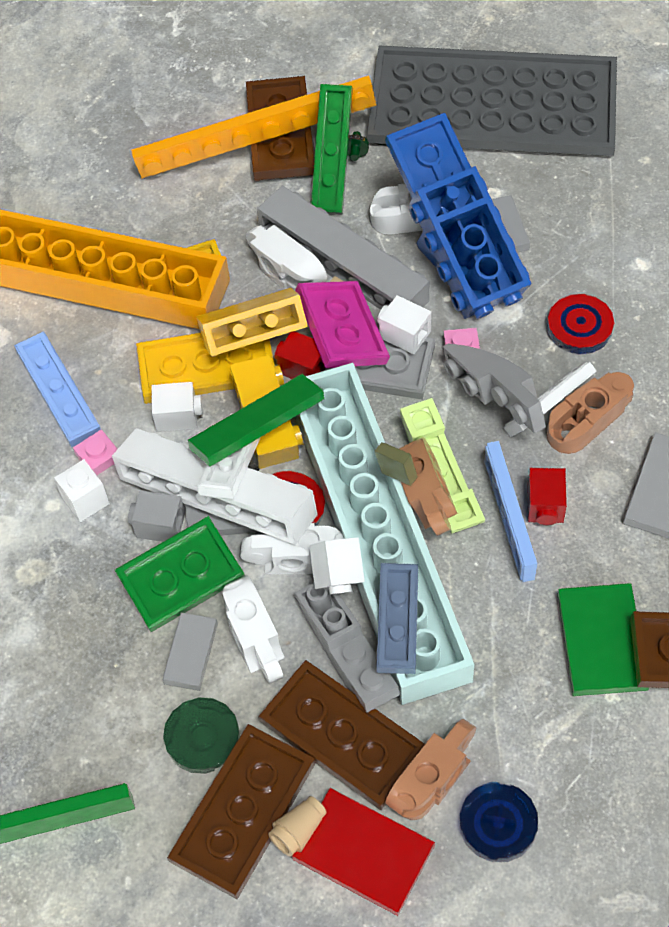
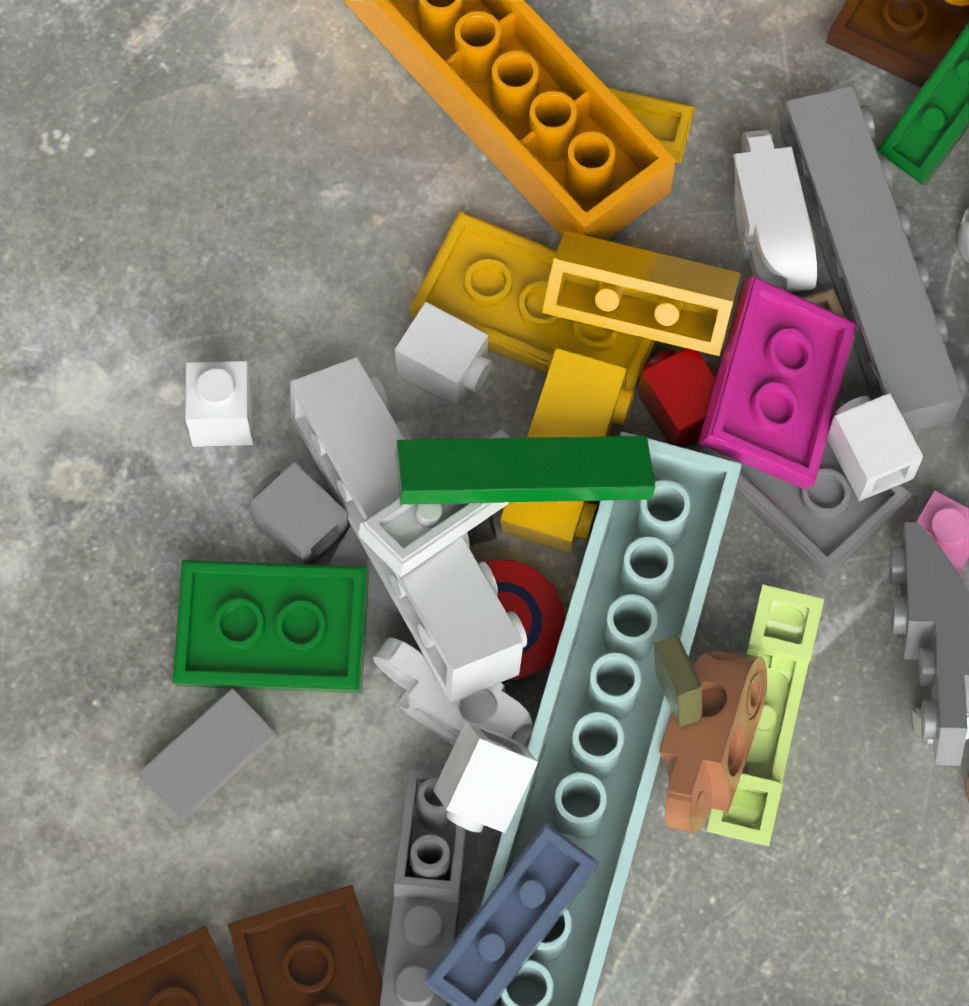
camera: 30 degrees right, 10 degrees up
(57, 388) = (299, 211): light blue tile -> none
(96, 451) = (285, 352): bright pink plate -> none
(201, 734) = (136, 892): clear green tile -> none
(253, 628) = (312, 783): white piece -> none
(510, 512) = (816, 857): light blue tile -> none
(547, 495) = (890, 871): red brick -> none

